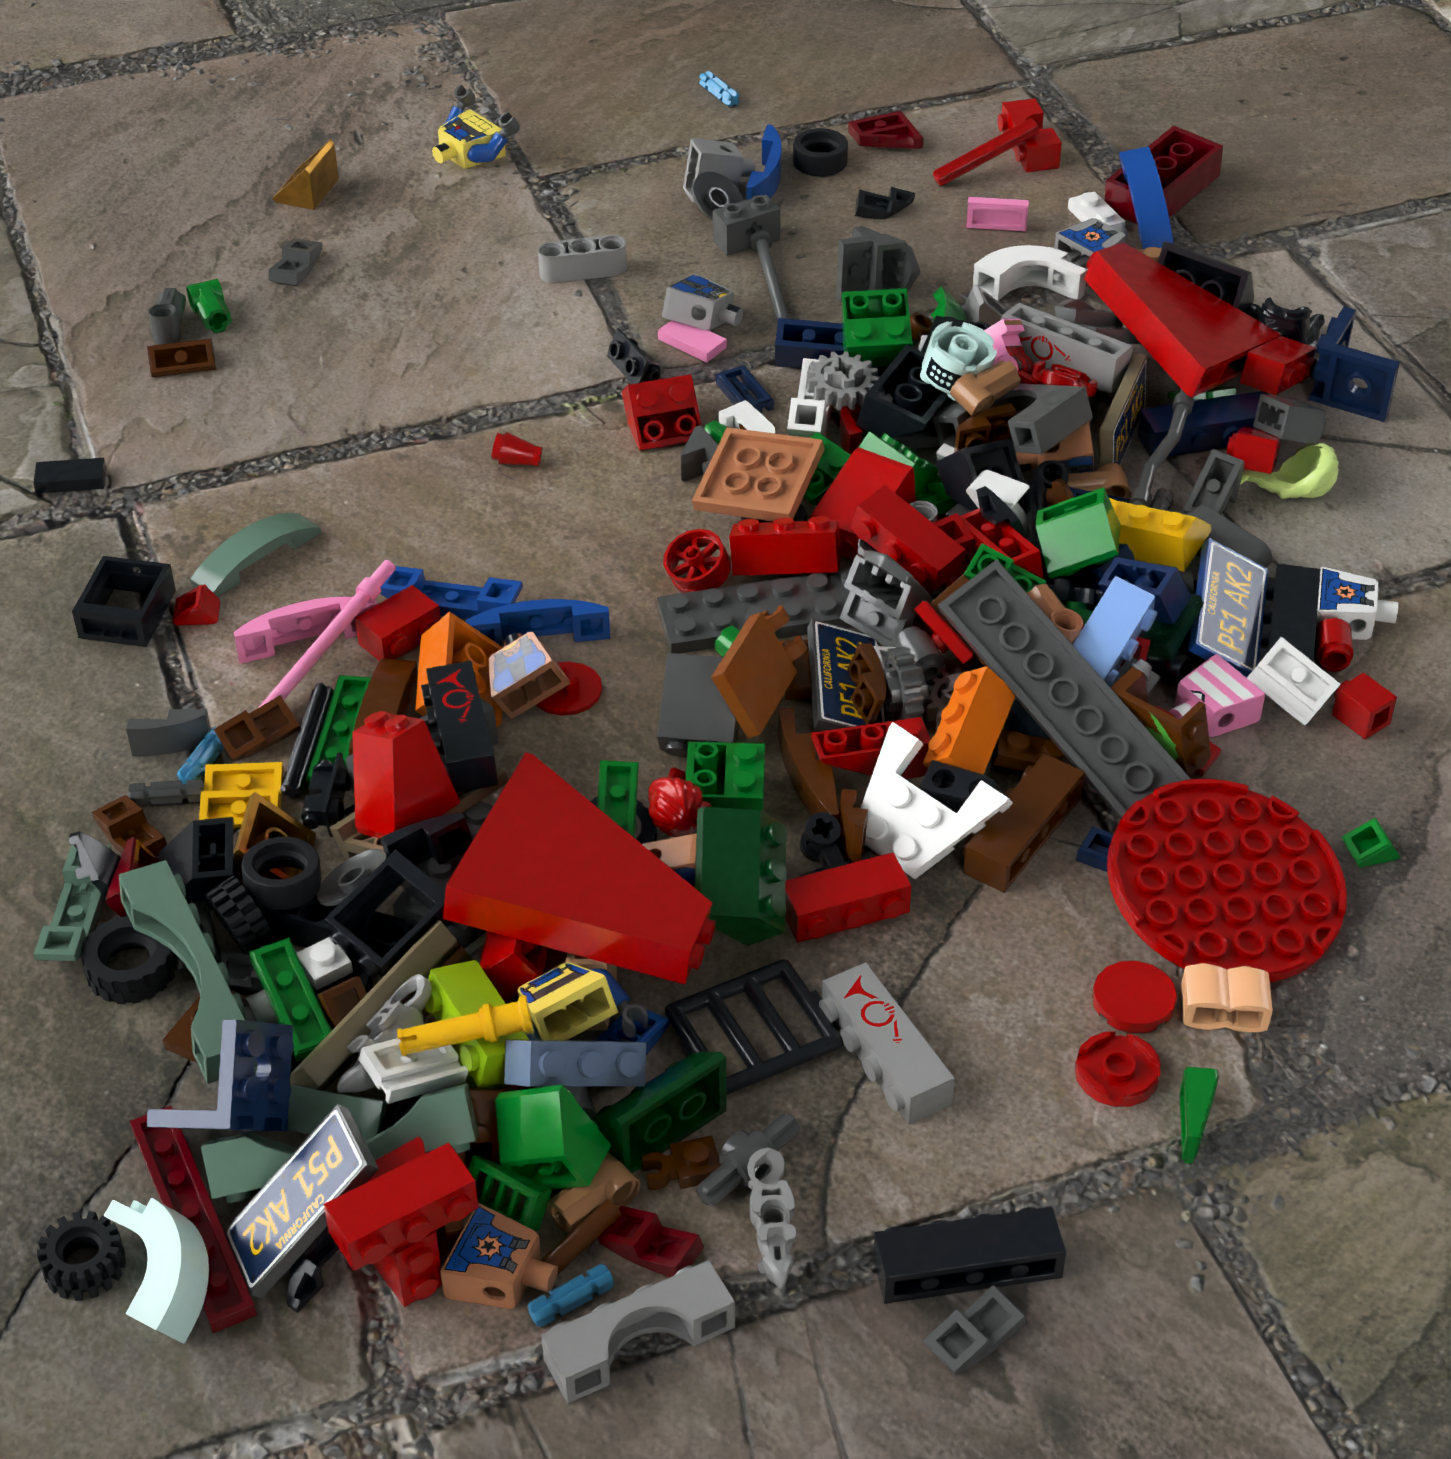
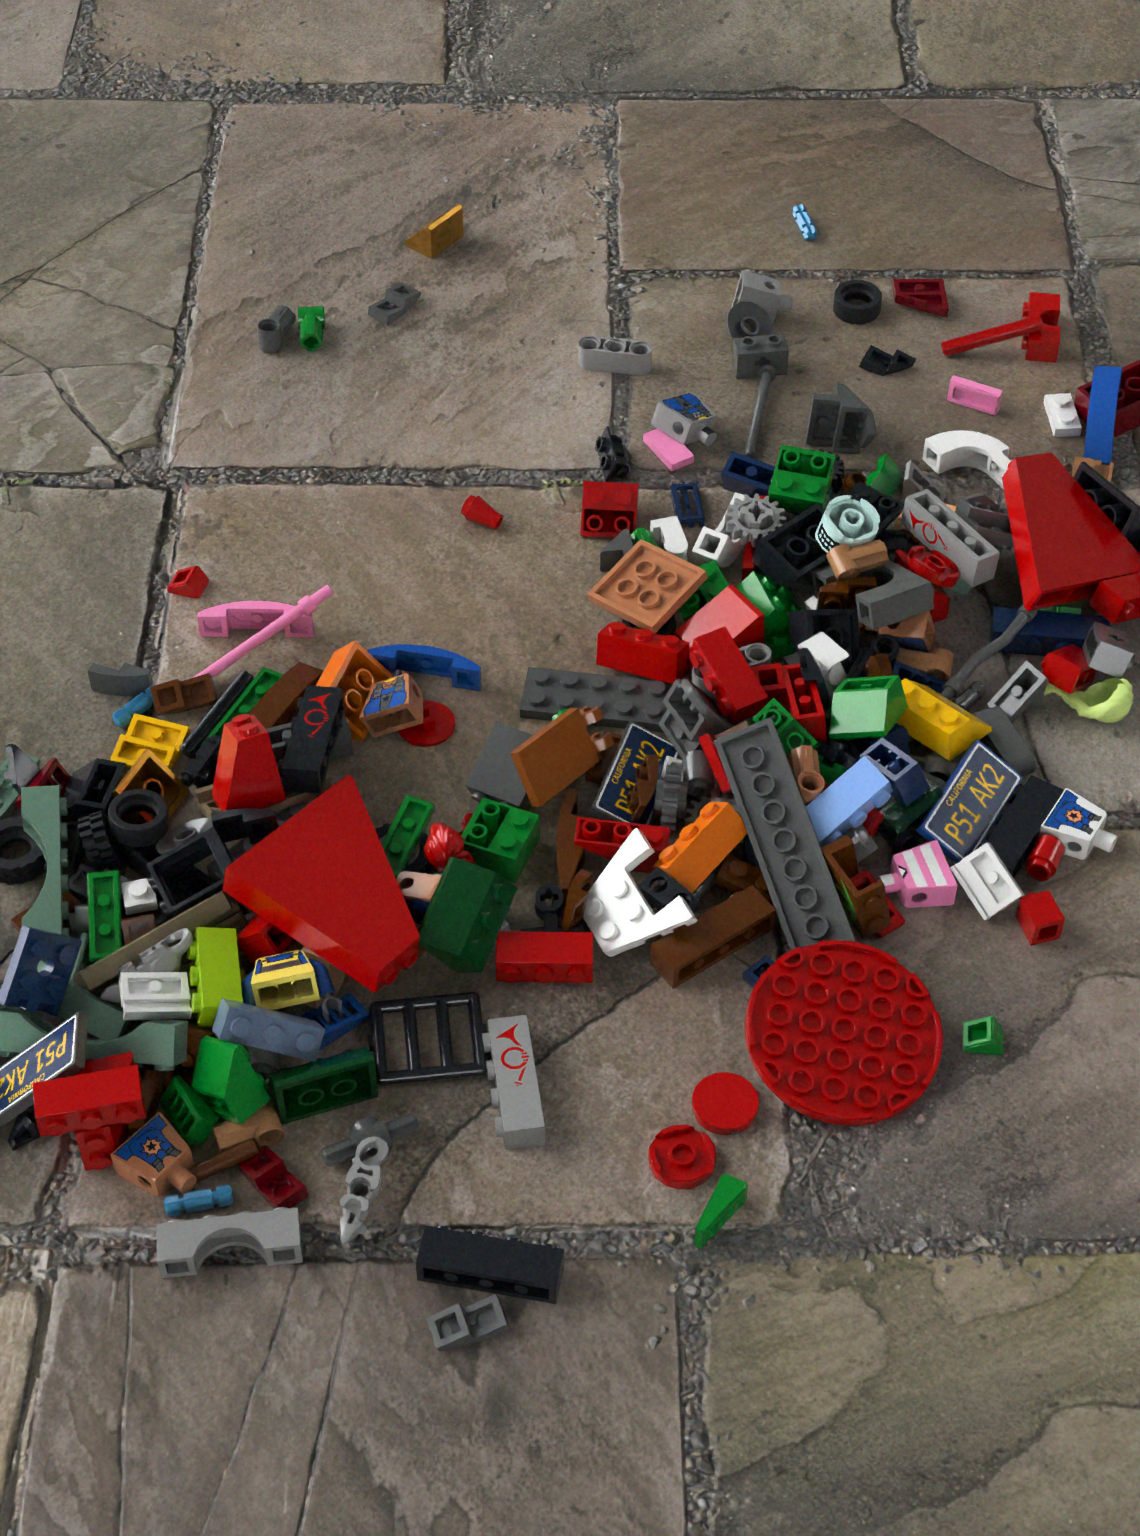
camera: 20 degrees right, 5 degrees up
(69, 475) = (147, 447): black tile -> none
(119, 624) = (137, 588): black window -> none
(125, 820) = (61, 744): reddish brown slope -> none
(166, 792) = (98, 726): dark grey axle -> none
(181, 357) = (271, 367): reddish brown slope -> none
(250, 544) = (247, 541): sand green slope -> none
(396, 624) = (321, 636): red brick -> none
(458, 599) = (370, 624): blue slope -> none
(471, 138) = (577, 221): torso -> none
(486, 1024) = (211, 982): yellow pin -> none
(688, 1163) = (327, 1129): reddish brown plate -> none
(697, 563) = (566, 635): red wheel -> none
(769, 180) = (793, 323): blue slope -> none
(1009, 345) = (898, 527): bright pink leg -> none
(1087, 237) = (1039, 439): light grey torso -> none
(1123, 413) = (974, 608): tile -> none
(1226, 998) = (792, 1127): light nougat brick -> none

